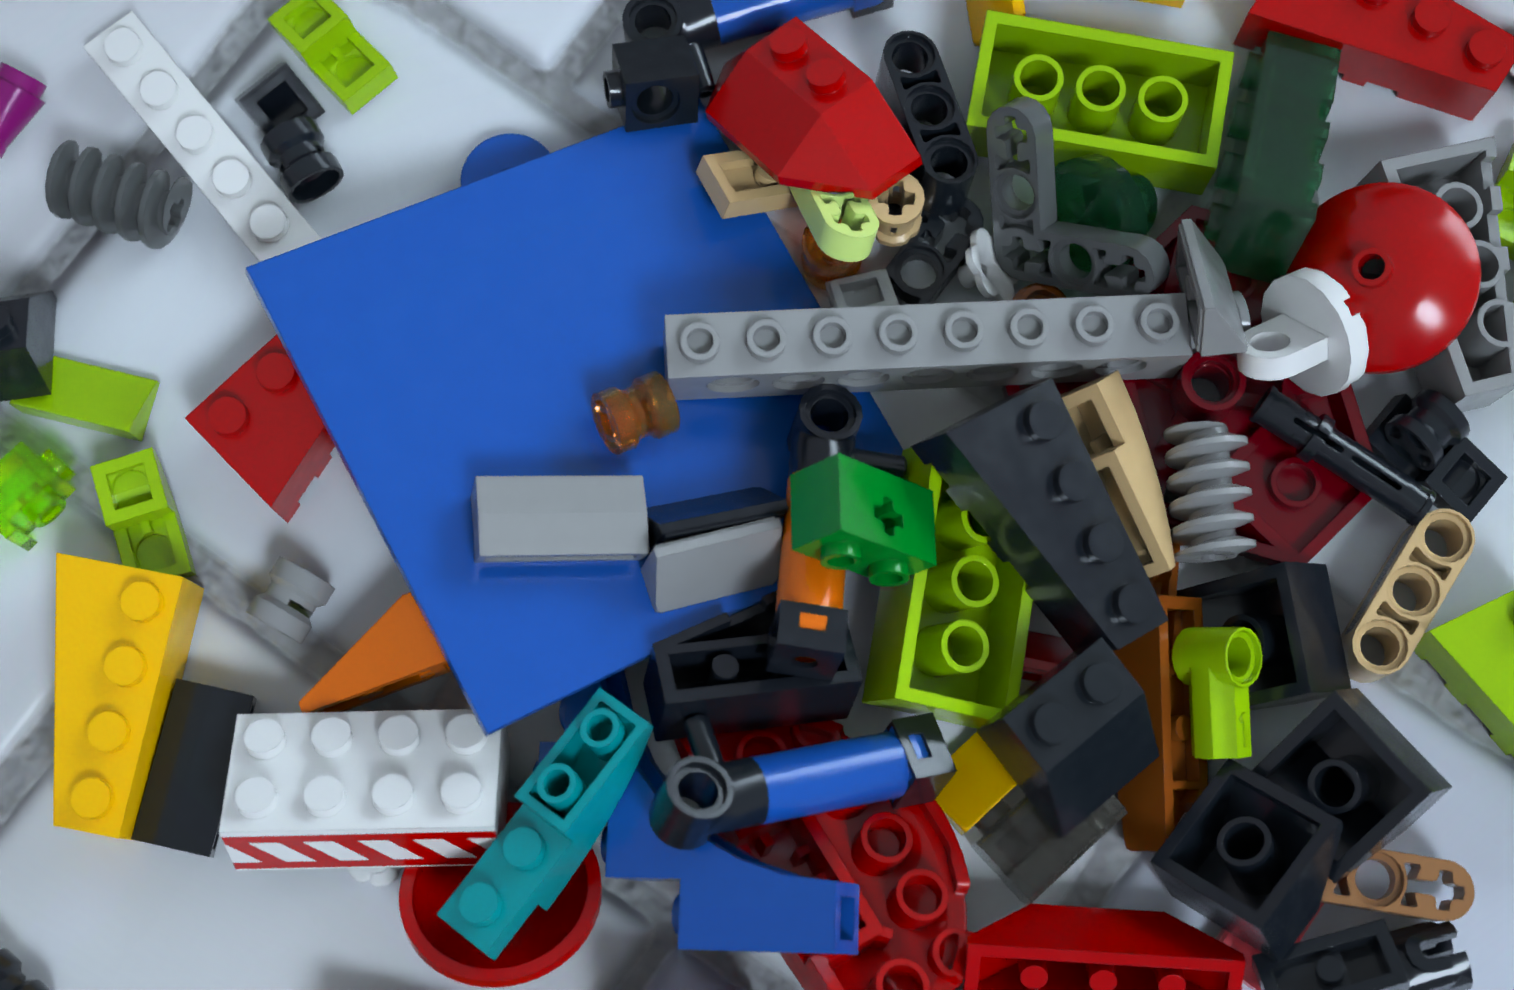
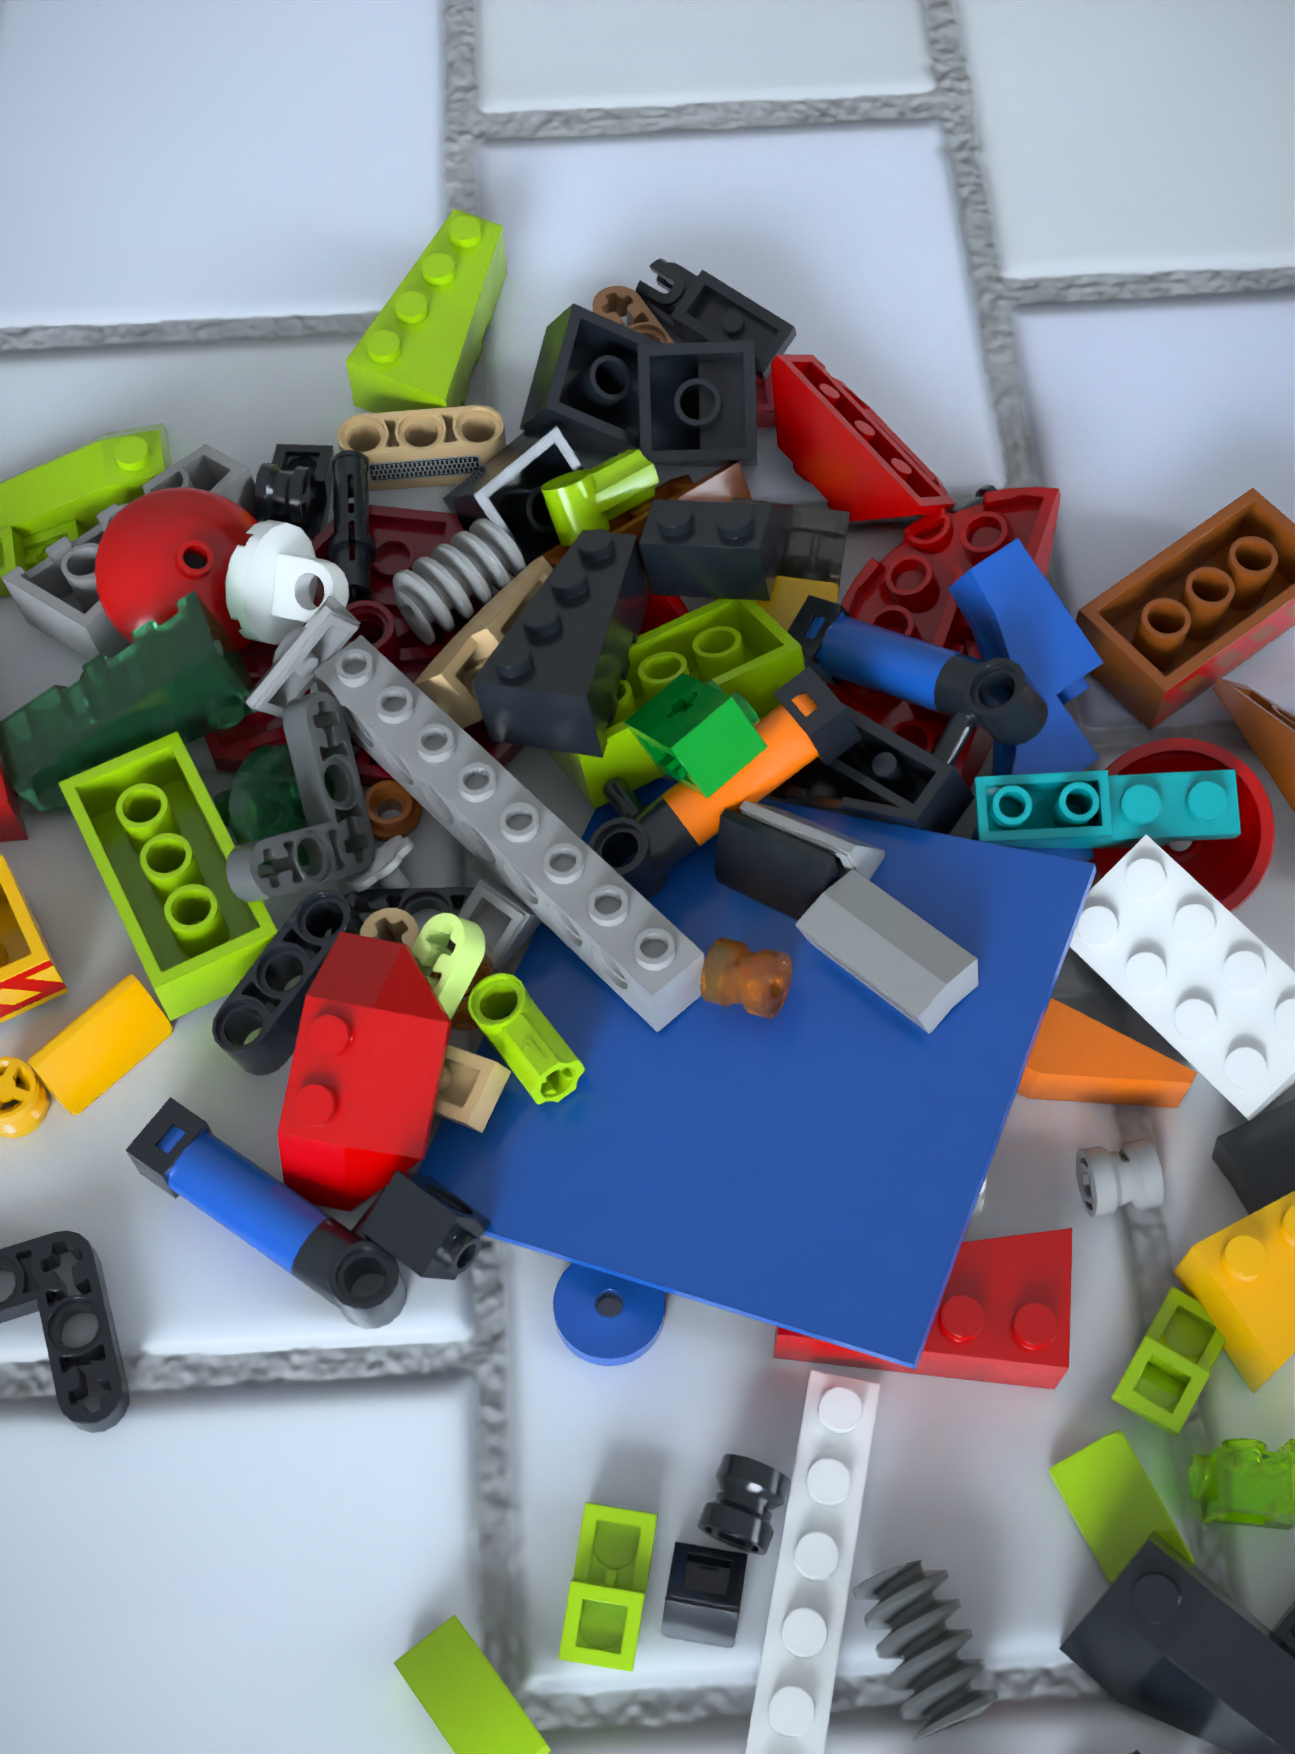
camera: 130 degrees left, 15 degrees down
(735, 245) = (524, 1038): none -> lime piece

